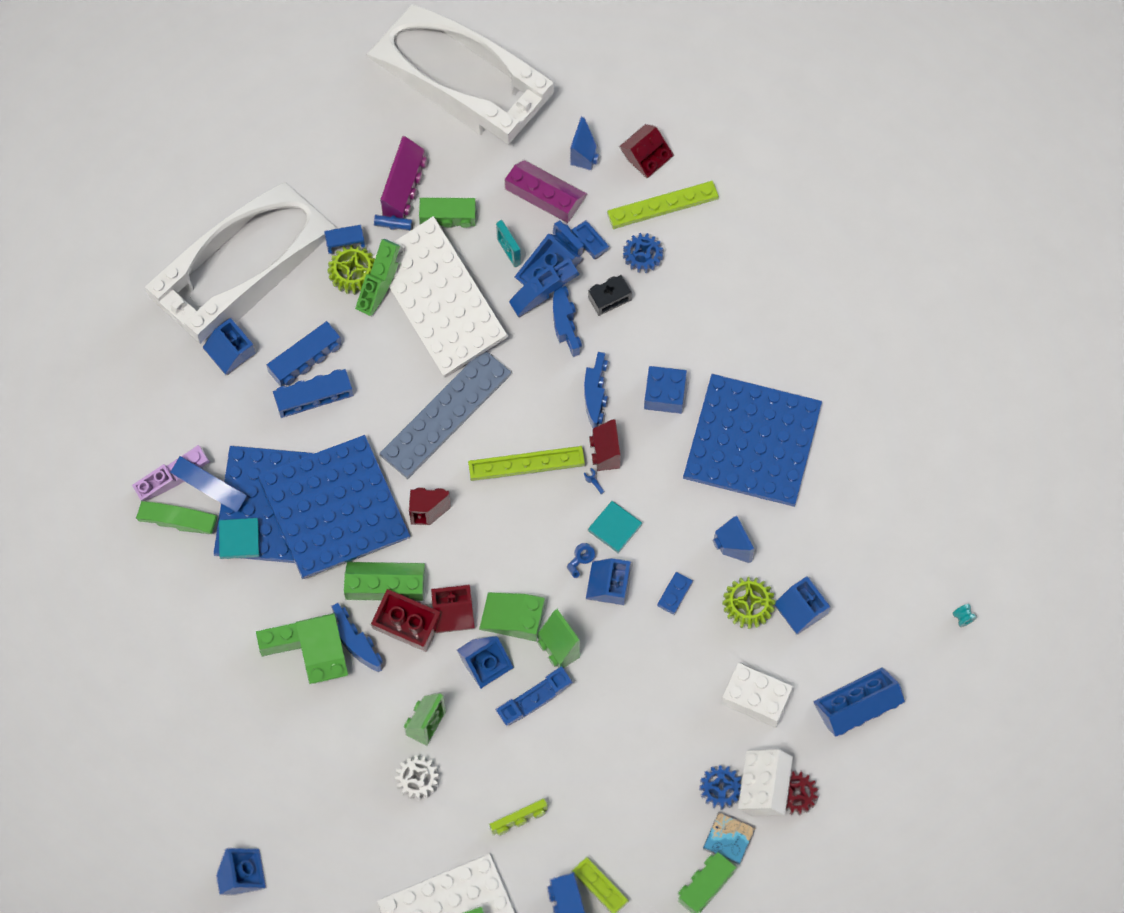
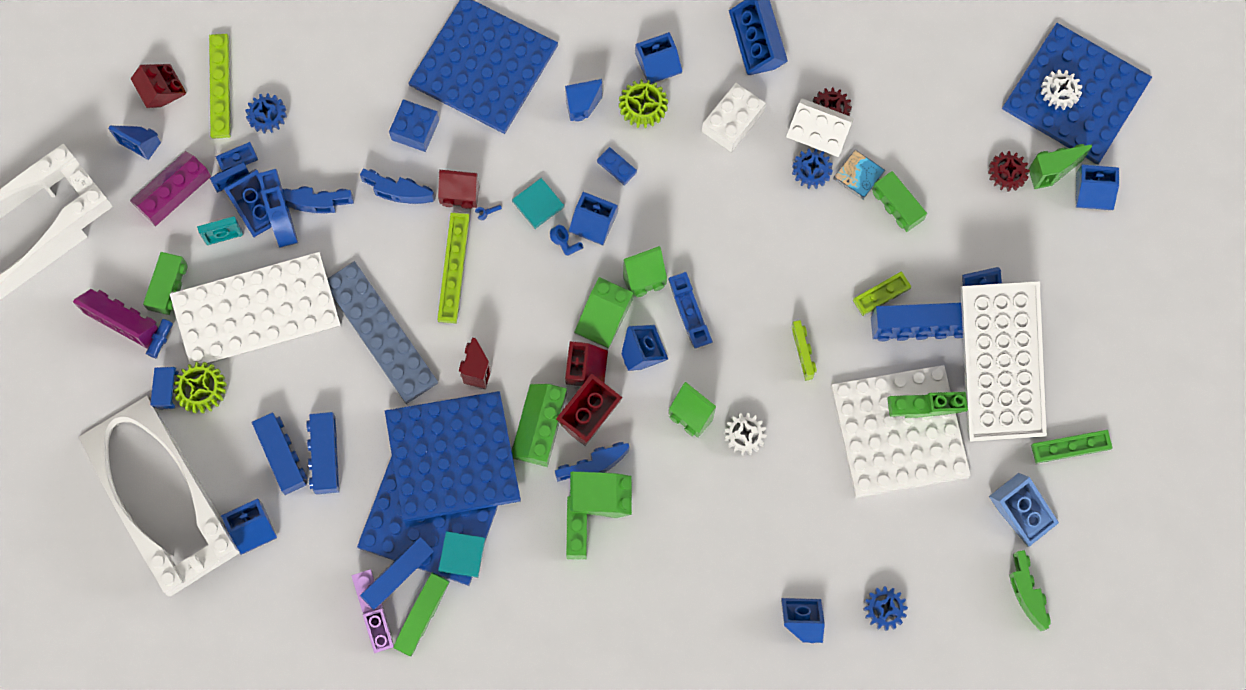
camera: 80 degrees left, 5 degrees up
(379, 279) = (219, 361): bright green slope -> none
(609, 294) = (301, 143): black brick -> none

